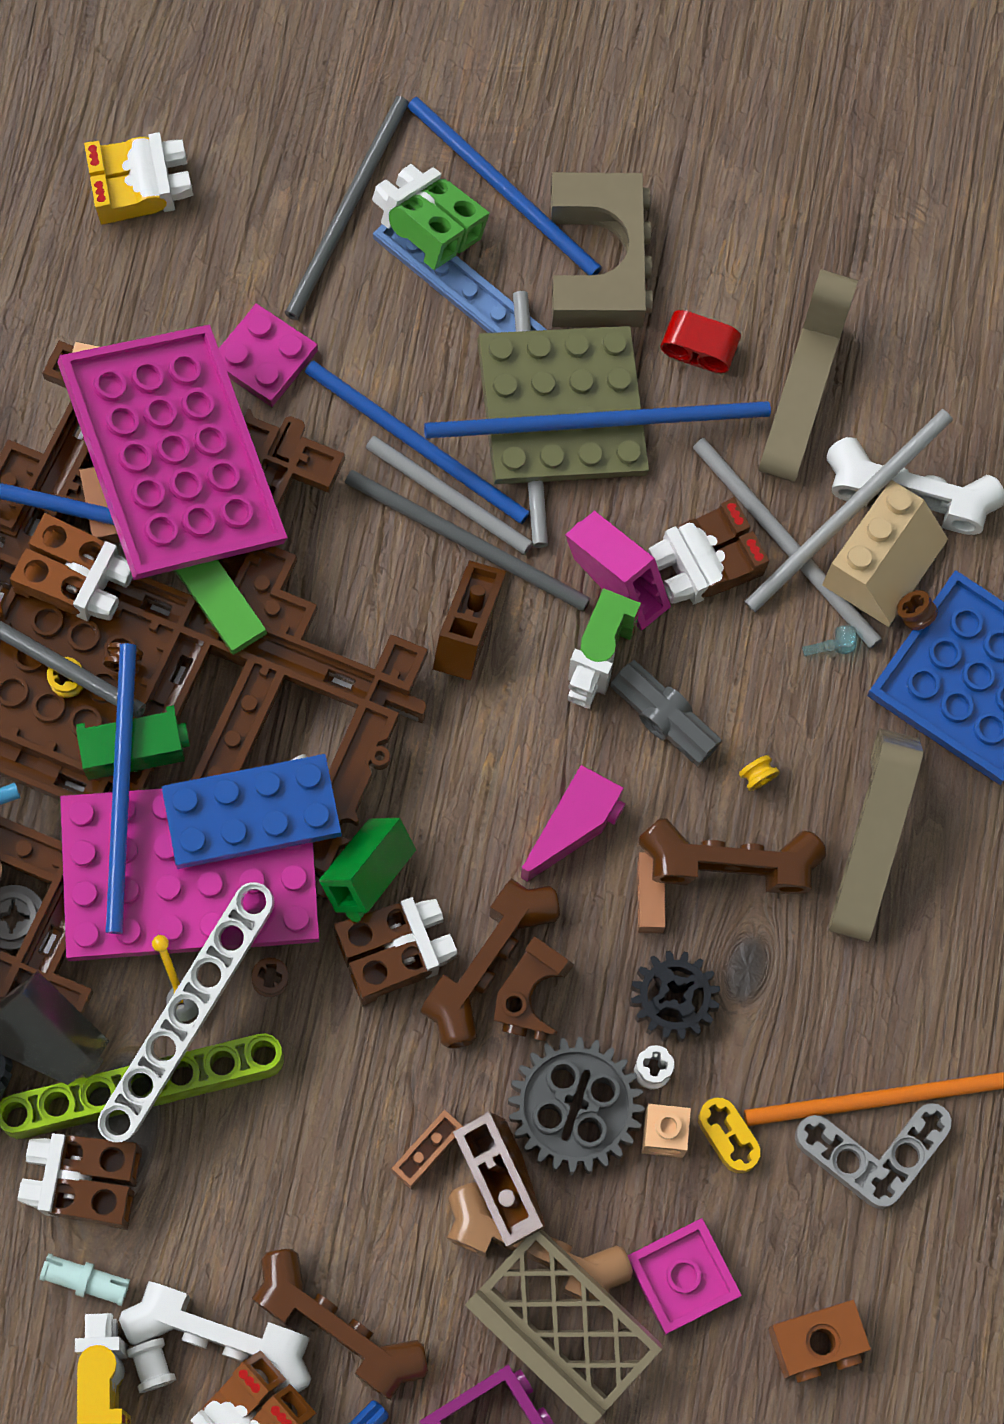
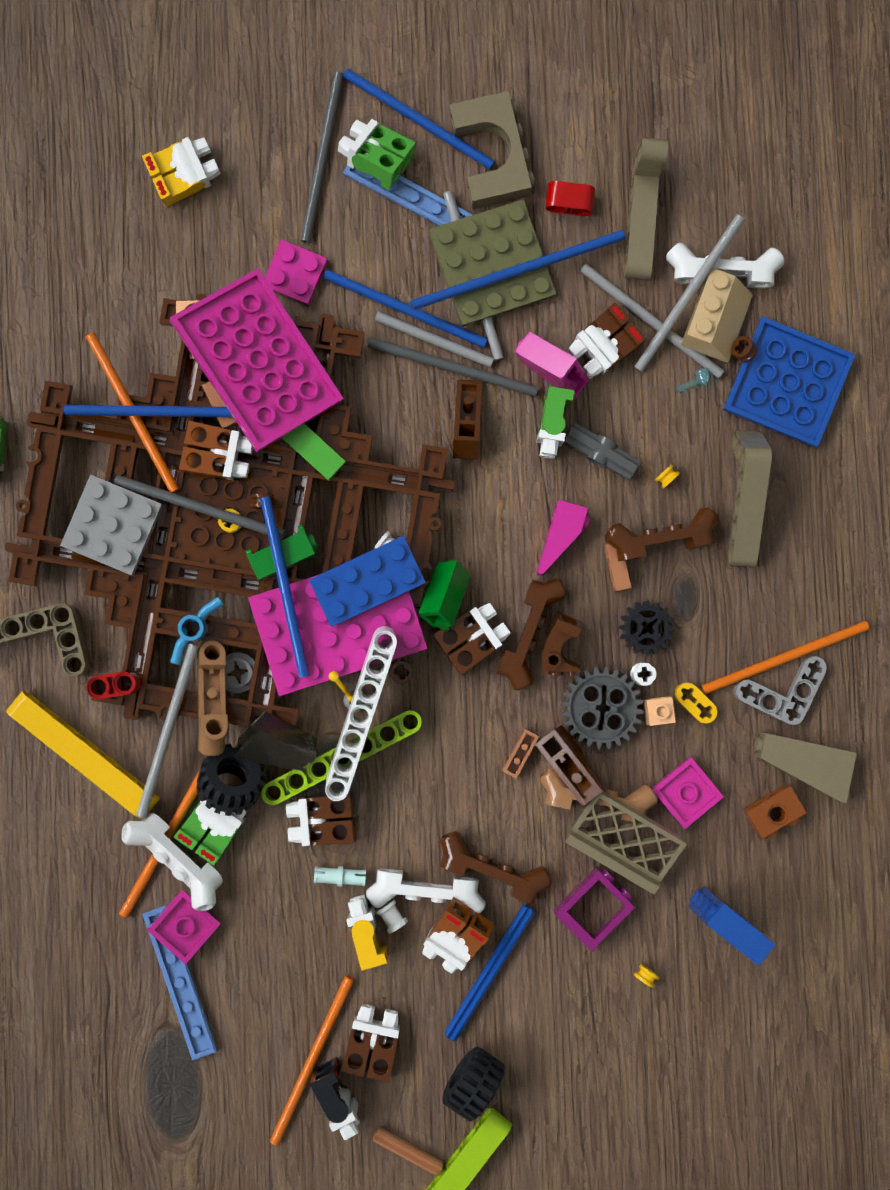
camera: 10 degrees left, 15 degrees up
(896, 1275) = (815, 765): none -> dark tan slope

